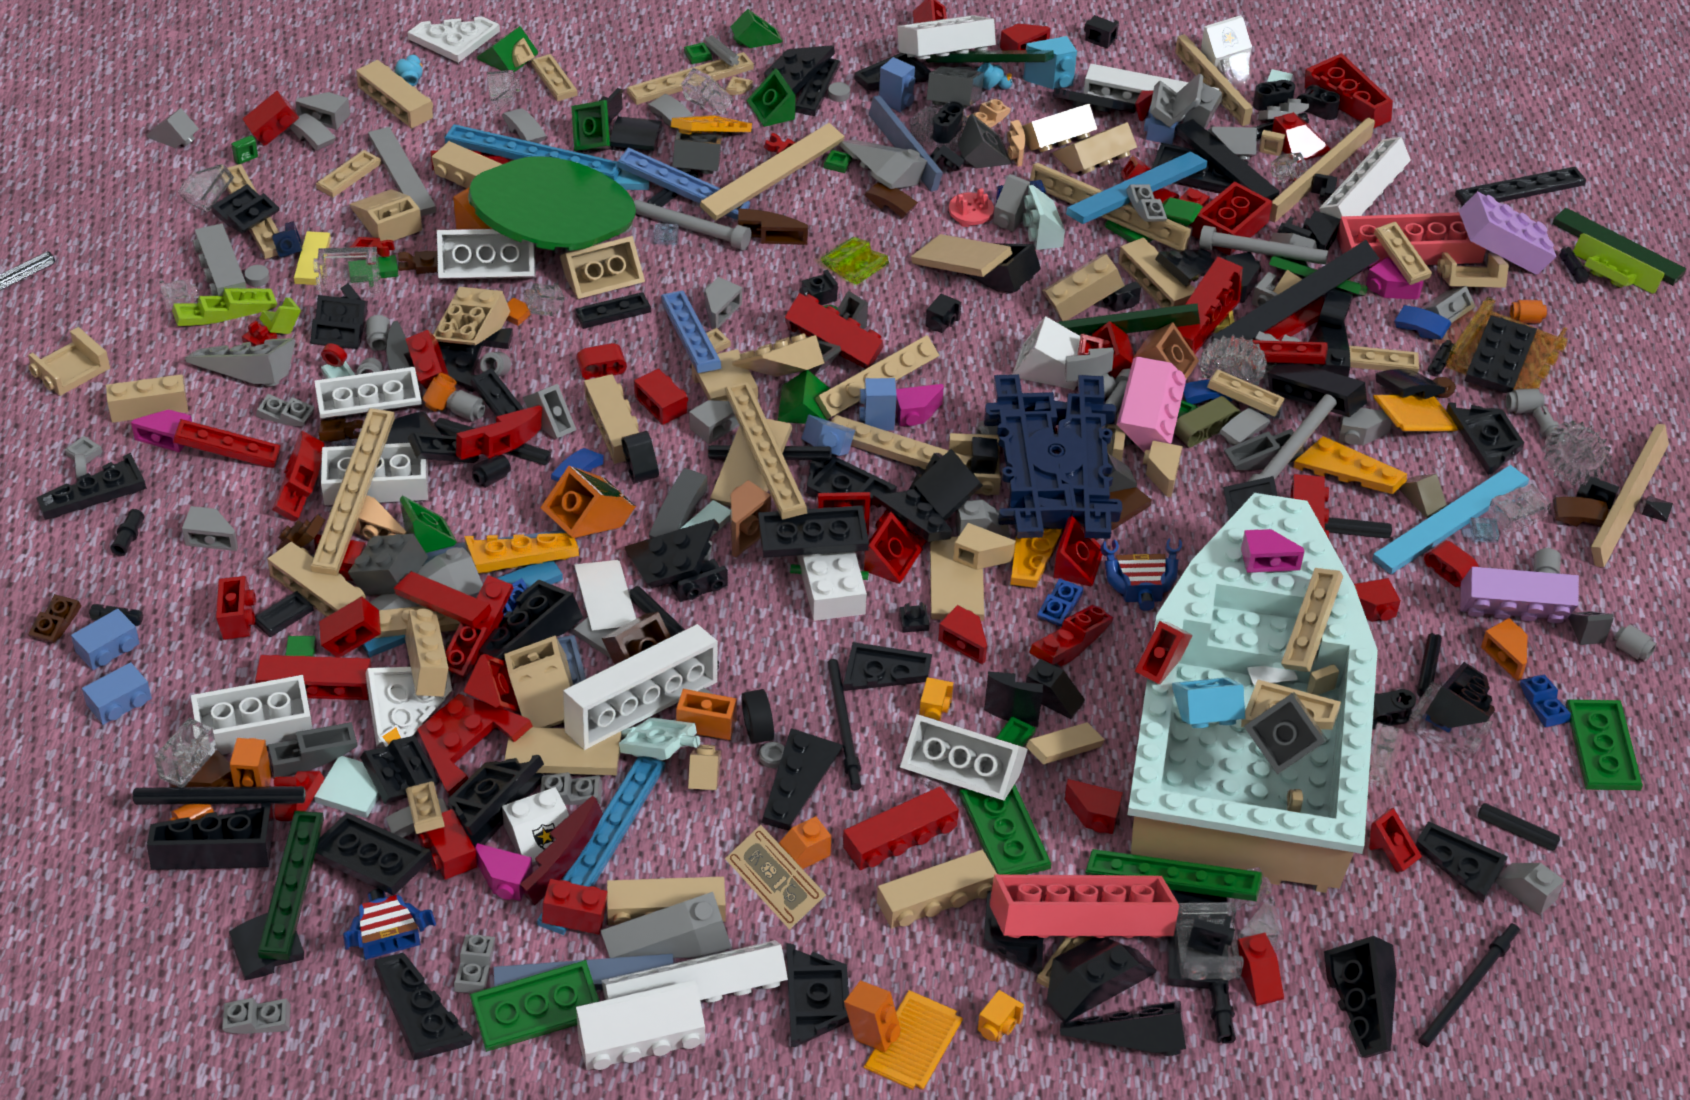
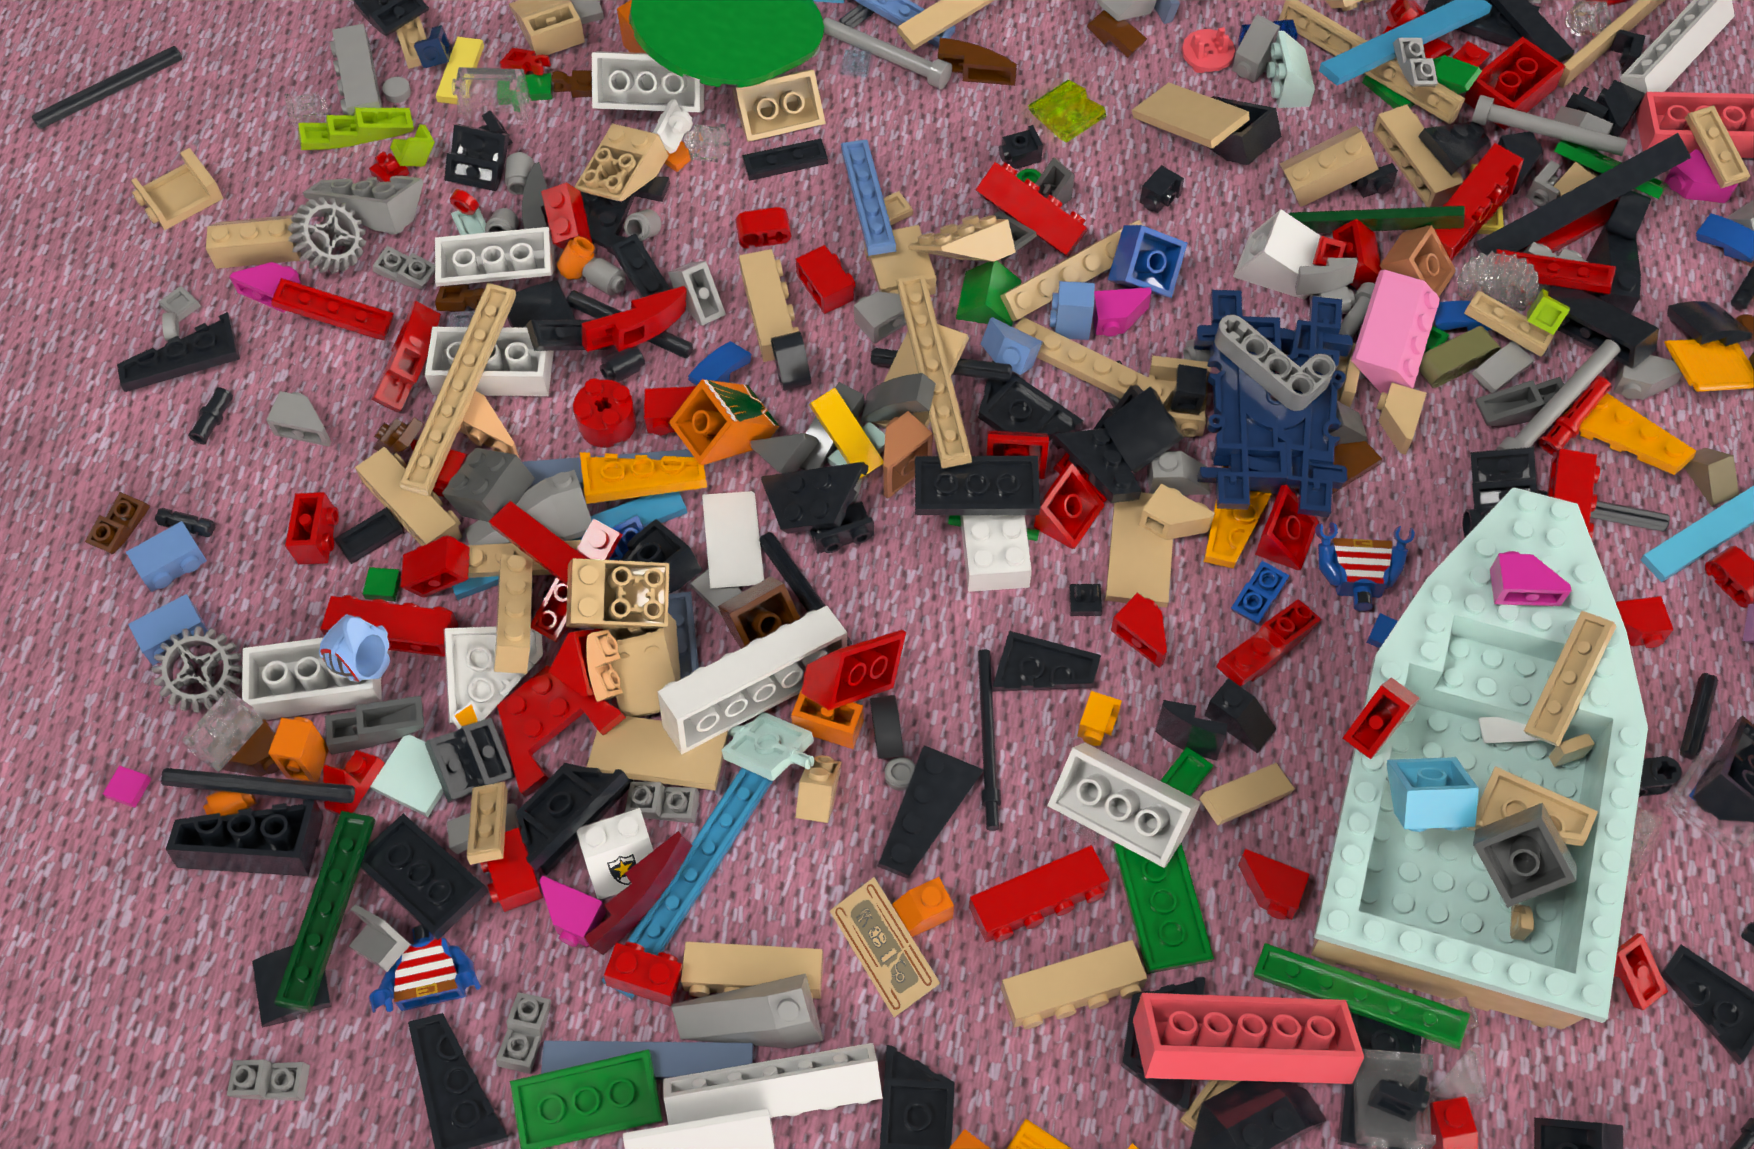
camera: 10 degrees right, 15 degrees up
(95, 814) = (127, 786): none -> dark pink tile
(138, 700) = (185, 677): none -> light grey gear
(210, 389) = (346, 235): none -> light grey gear
(295, 681) = (356, 649): none -> light blue piece
(343, 898) = (378, 940): none -> light grey panel
(426, 525) = (539, 436): green slope -> none
(481, 506) = (604, 412): none -> red brick
(508, 677) = (601, 652): none -> light nougat slope
(513, 286) = (673, 126): none -> white hips
(516, 625) = (617, 594): none -> tan slope
(530, 499) = (661, 406): none -> red slope
(644, 522) = (785, 452): none -> dark grey slope
(693, 501) = (845, 430): none -> yellow tile
(721, 301) = (908, 156): light grey slope -> none
(726, 669) = (854, 671): none -> red slope
(744, 466) = (897, 397): none -> dark grey slope
(937, 362) = (1147, 260): none -> blue slope
(1050, 427) = (1237, 338): none -> light grey beam
(1275, 381) = (1547, 312): none -> lime panel
(1302, 463) = (1568, 425): none -> red pin
(1383, 359) = (1680, 284): tan tile -> none

